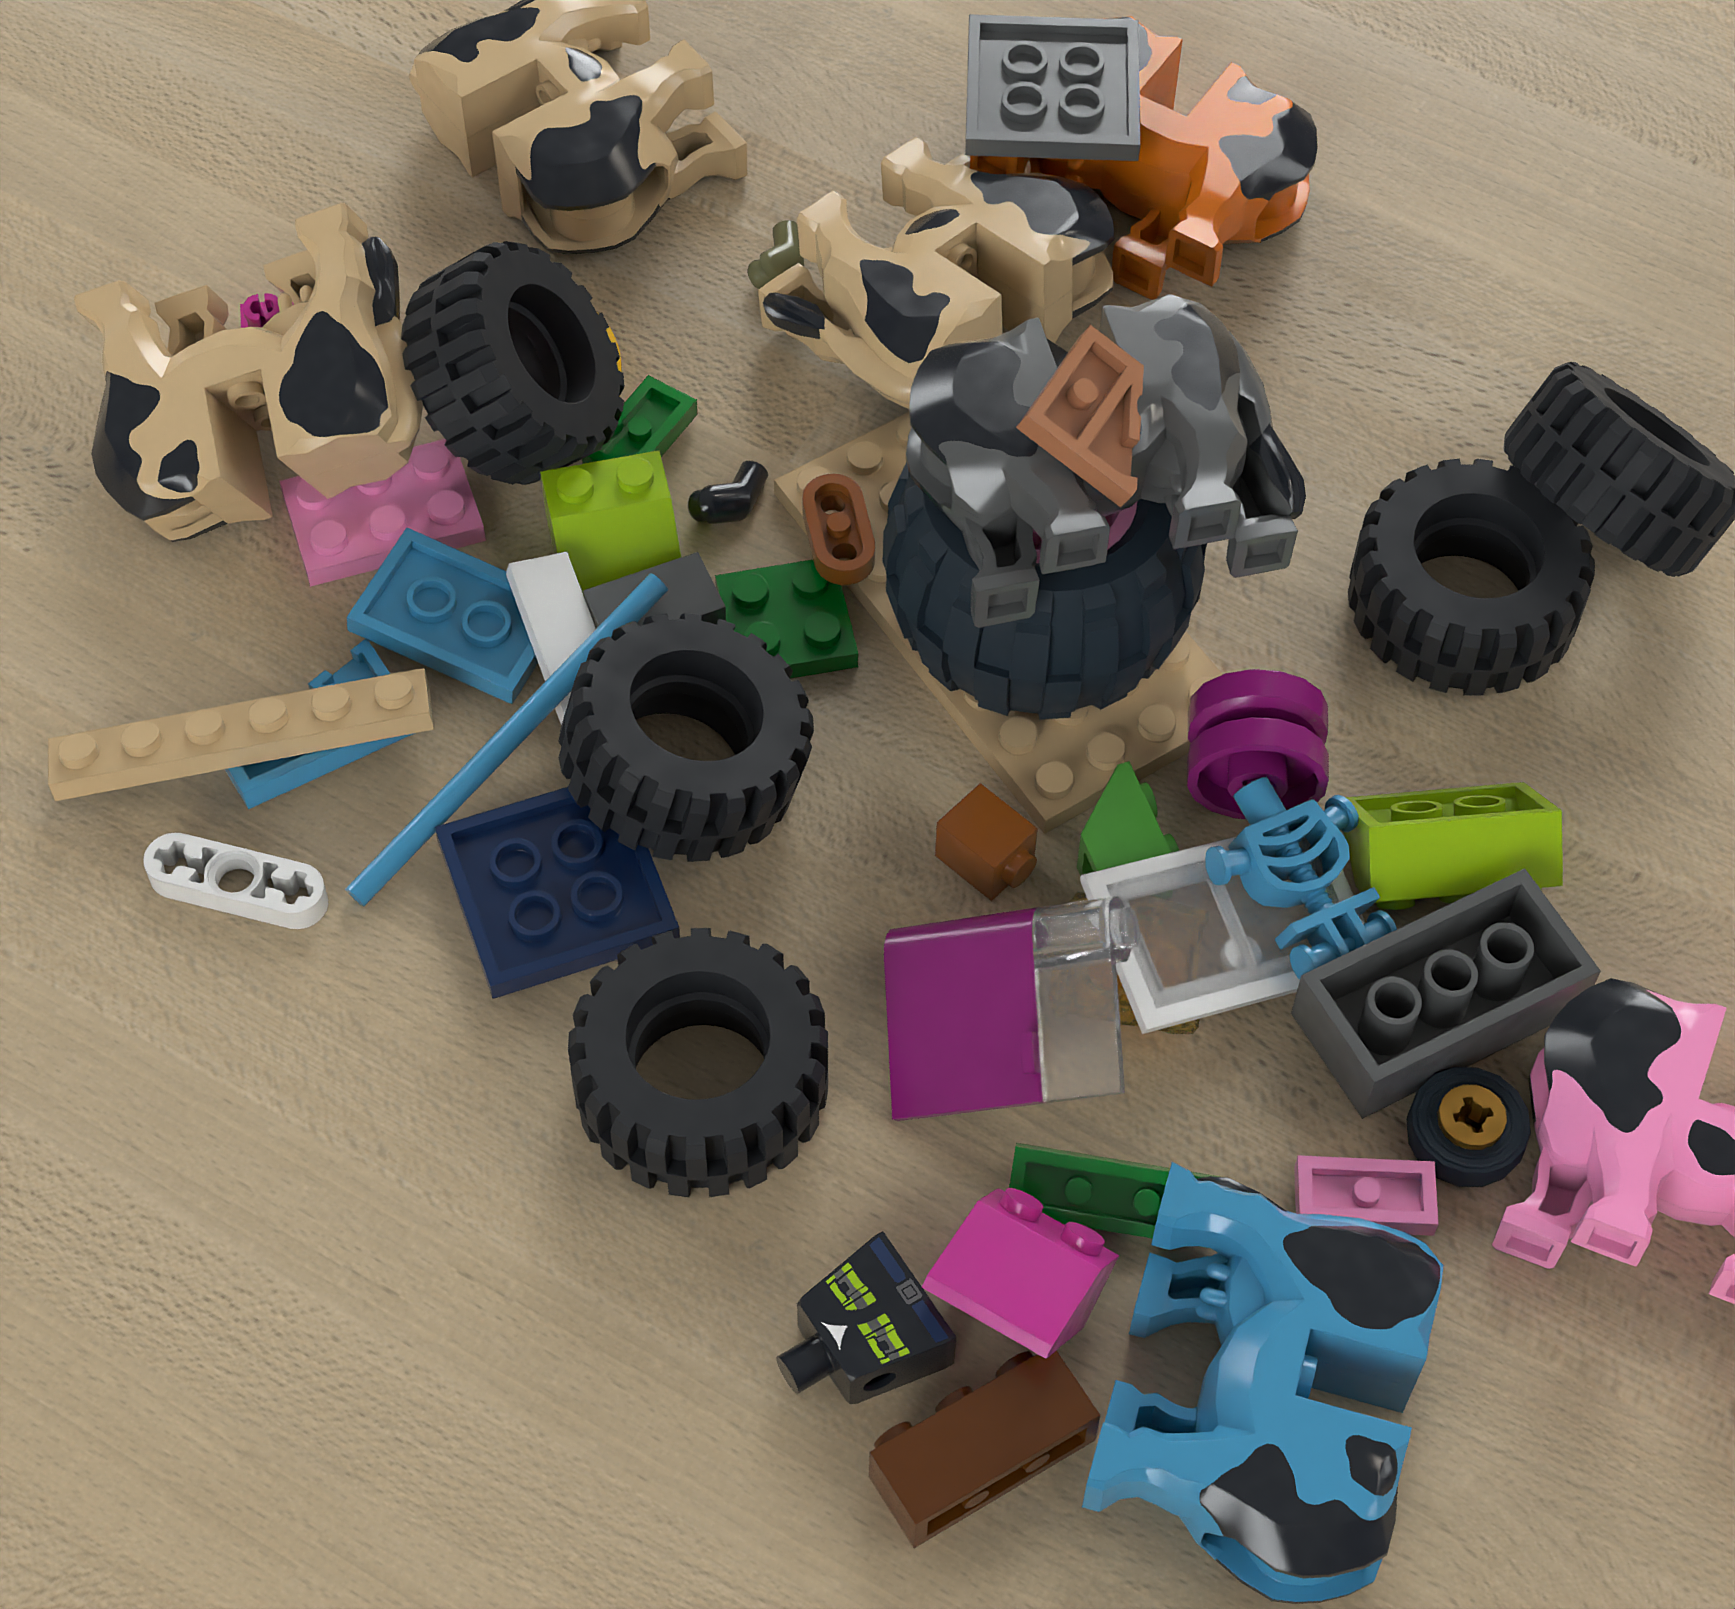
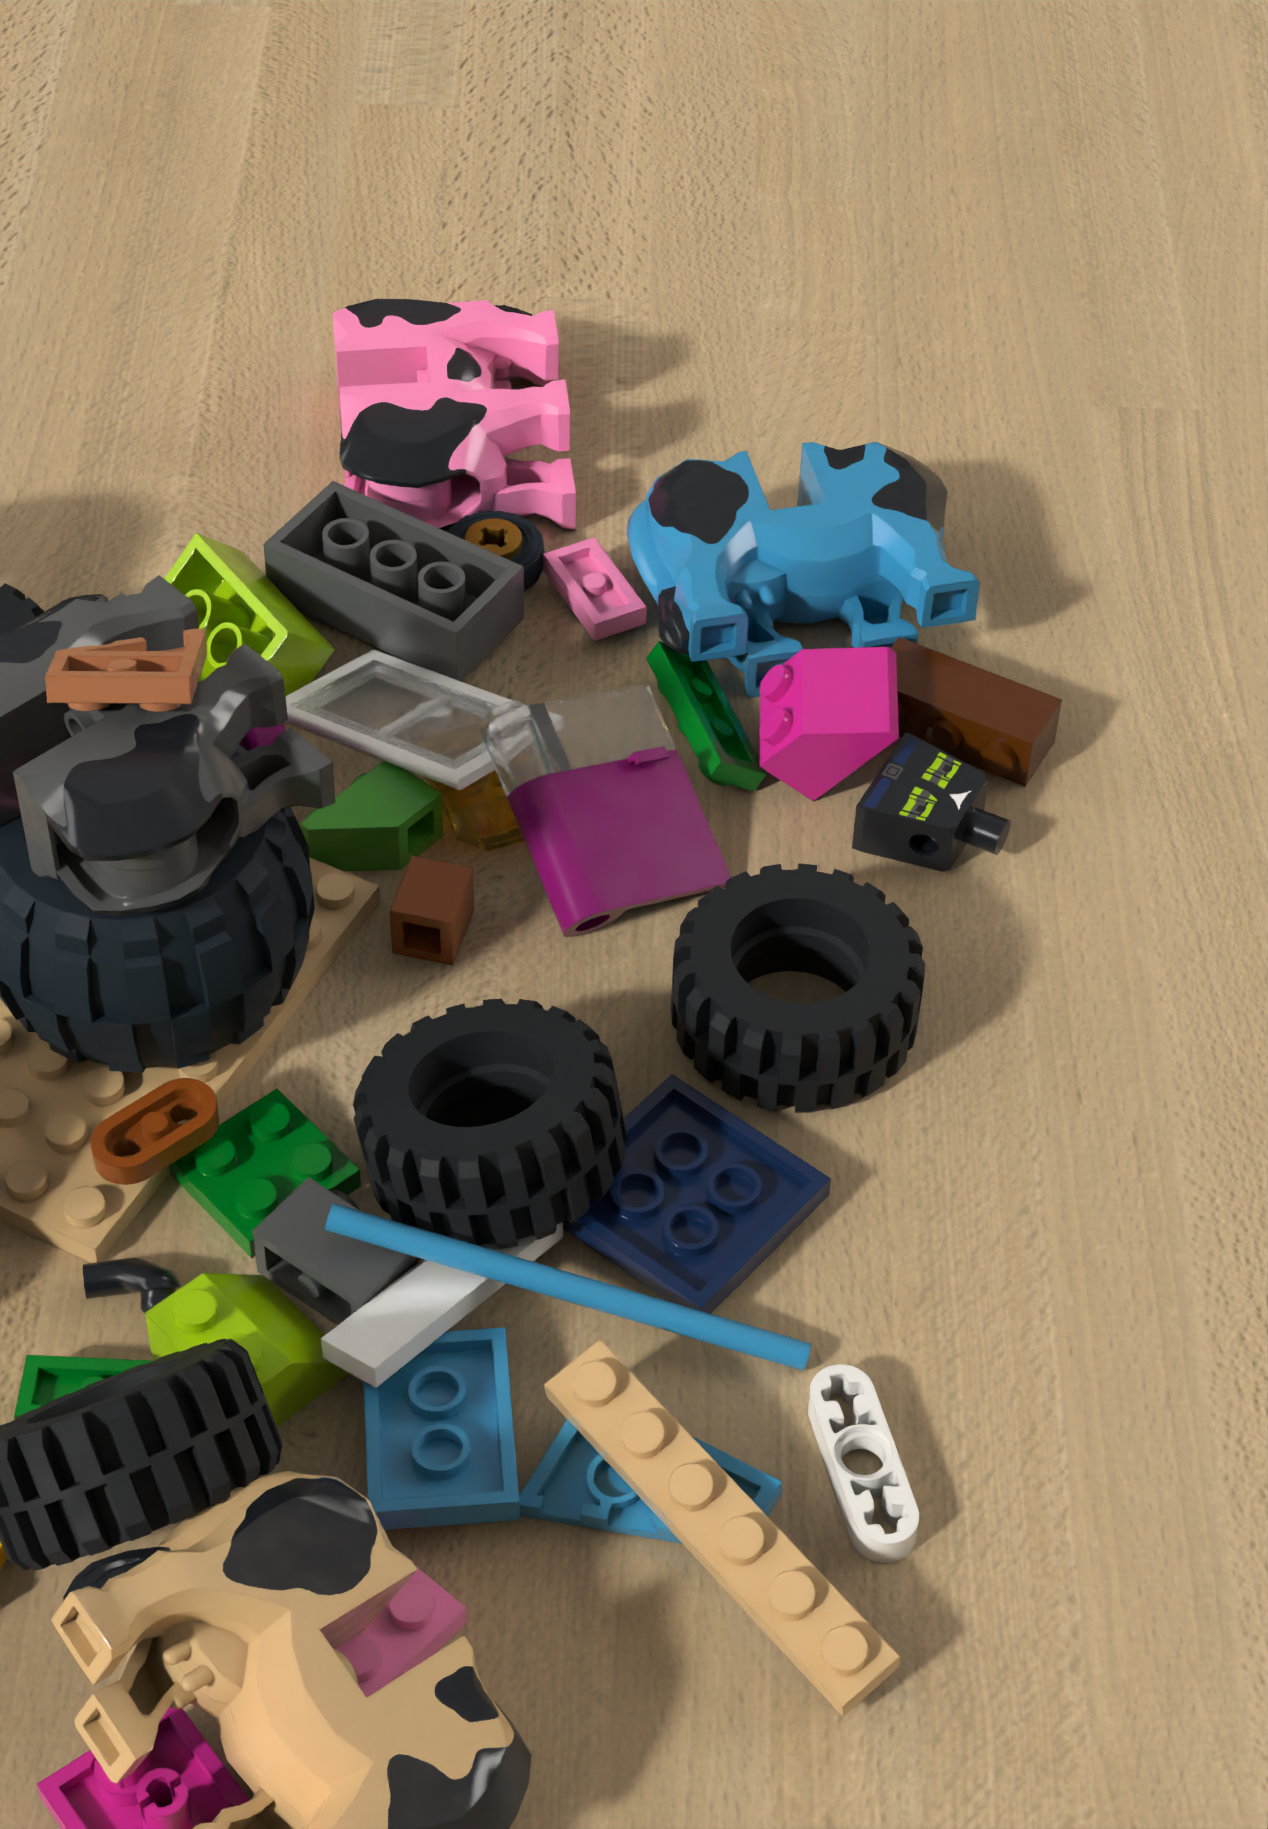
camera: 120 degrees left, 10 degrees down
(1270, 854) = (350, 681): dark azure piece -> none

